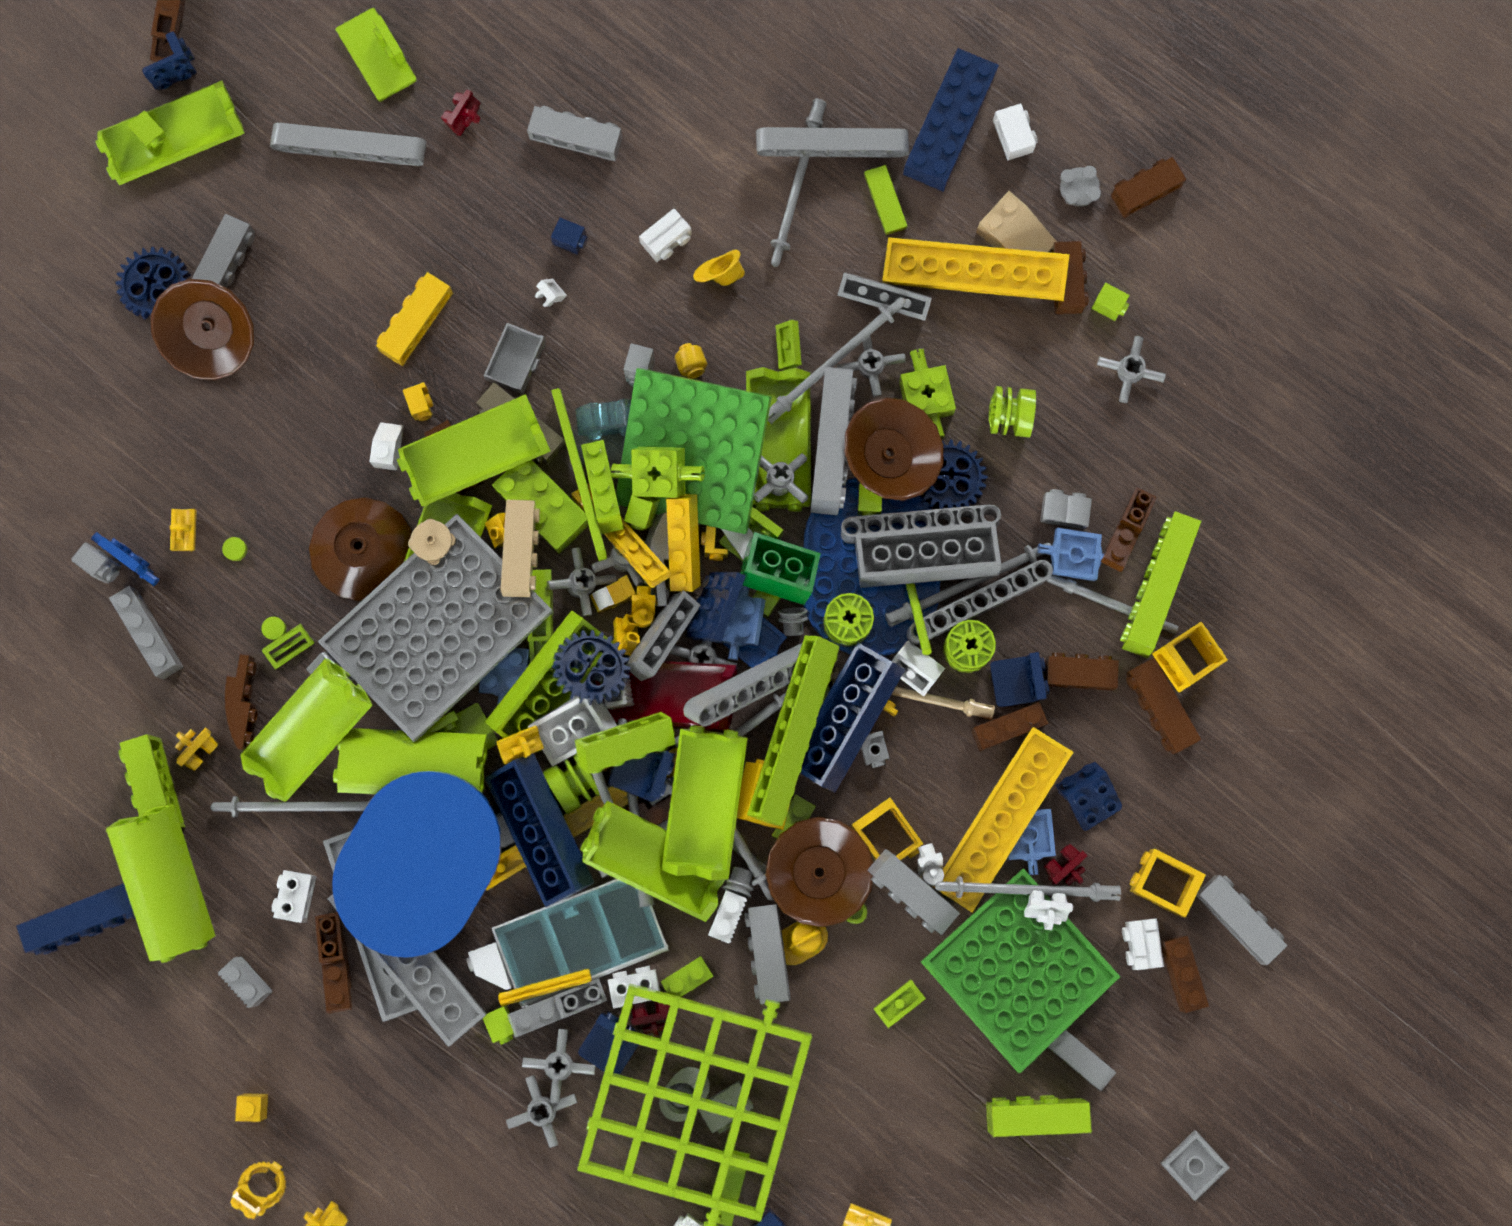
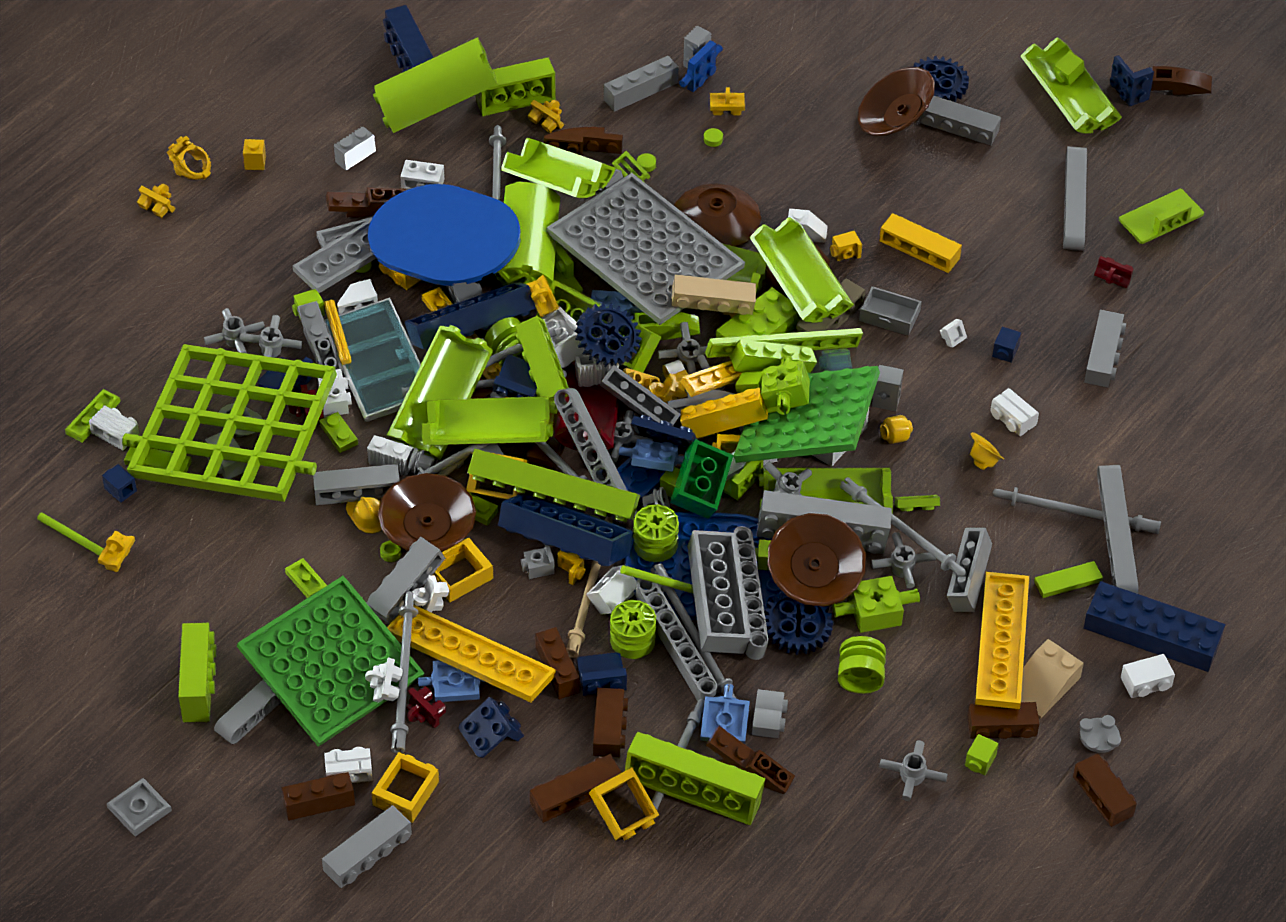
camera: 90 degrees right, 30 degrees down
(431, 541) = (719, 242): tan piece -> none

